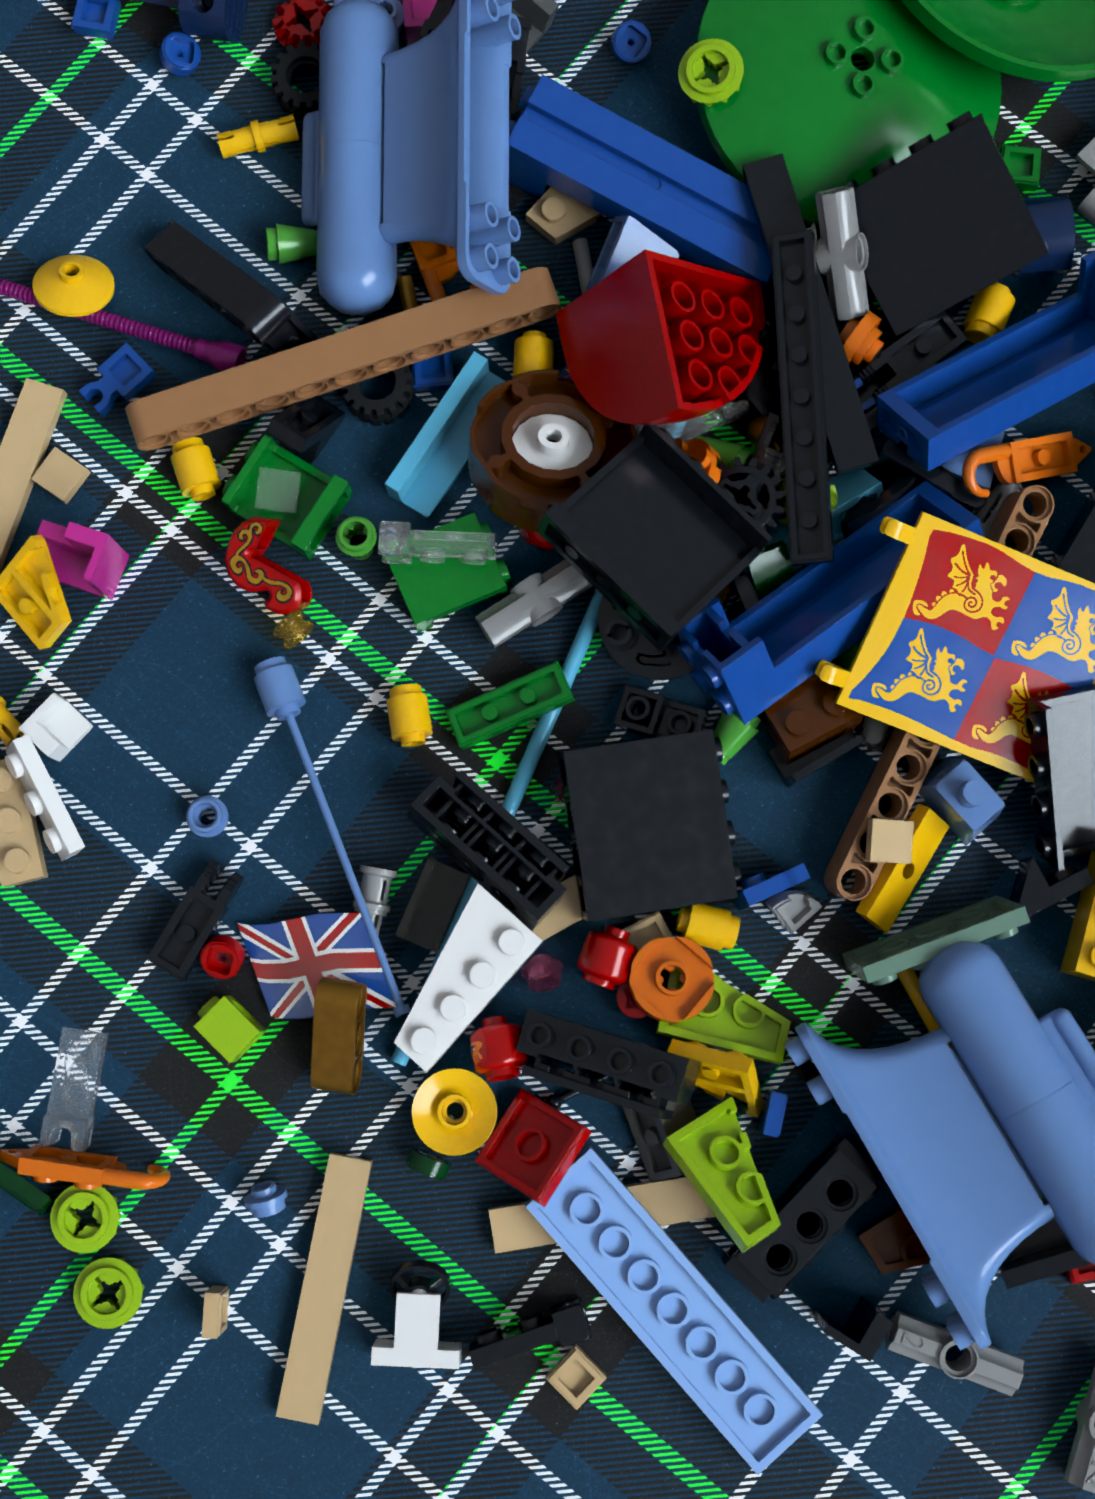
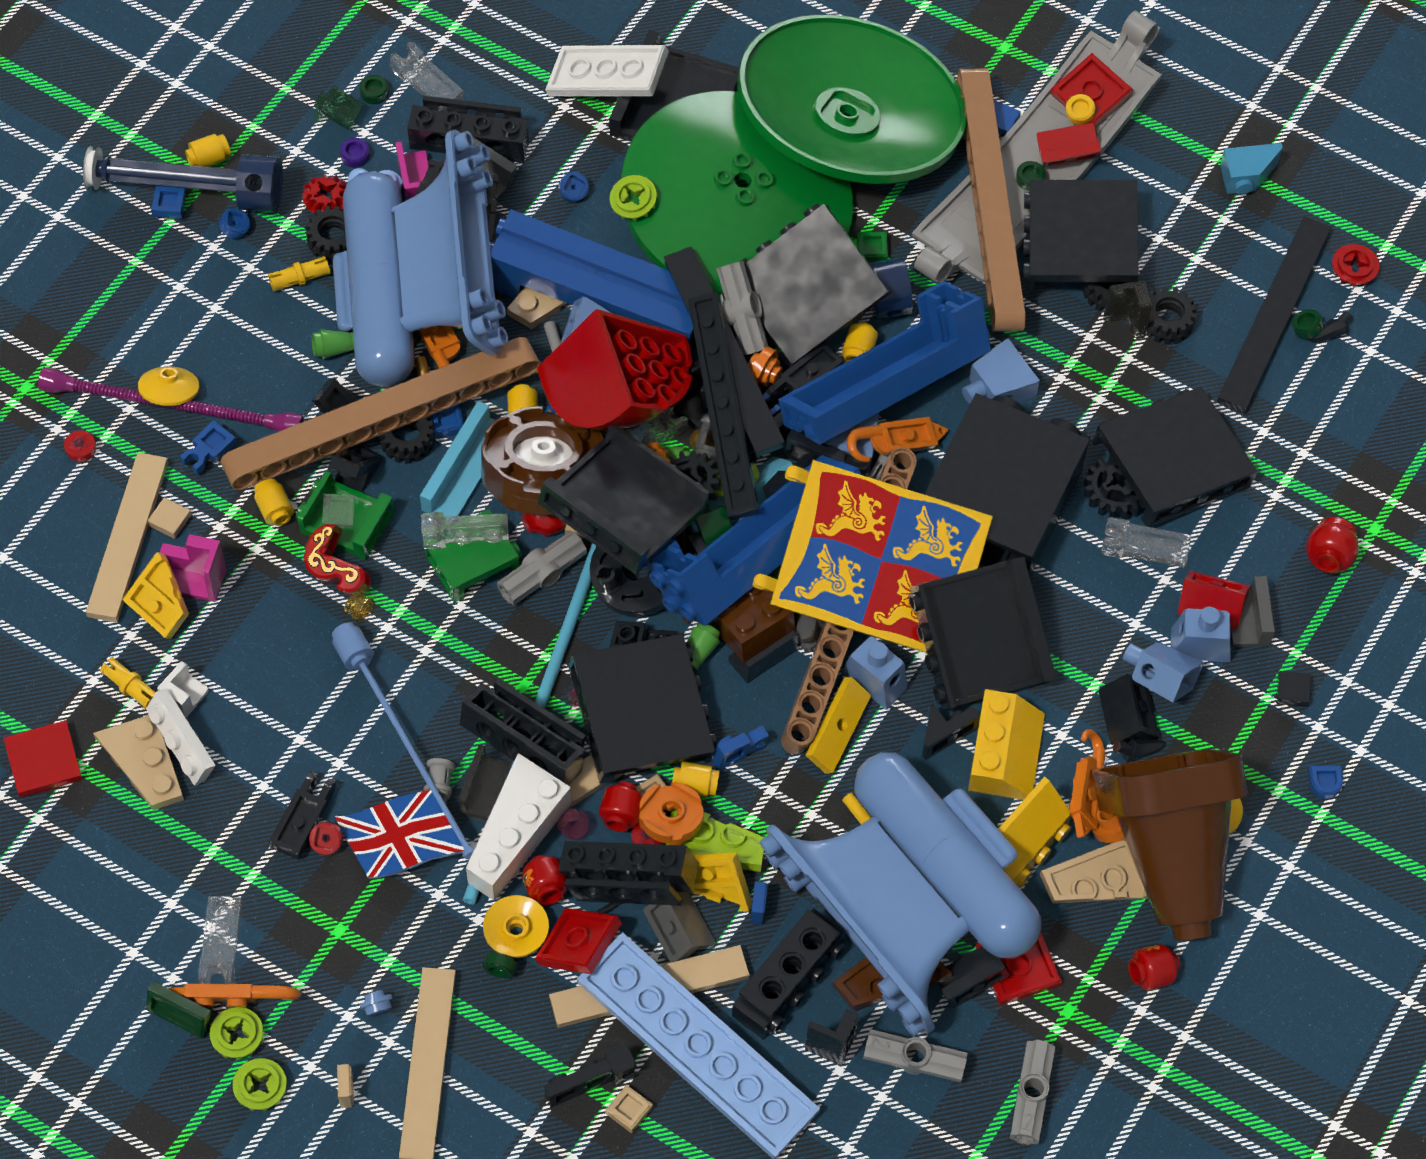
camera: 10 degrees left, 20 degrees down
(195, 812) = (304, 734): medium blue plate -> none
(218, 282) = (281, 369): black beam -> none
(228, 1027) = (337, 885): lime brick -> none
(338, 1035) = (422, 875): pearl gold beam -> none
(354, 530) = (402, 535): bright green cone -> none
(409, 715) = (453, 656): yellow brick -> none
(417, 1322) = (503, 1078): white piece -> none
(510, 705) = (529, 642): green tile -> none
(721, 1169) = (724, 936): lime wing -> none
(793, 908) = (758, 762): light grey tile -> none
(889, 840) = (822, 698): tan tile -> none
(915, 946) = (842, 775): sand green plate -> none

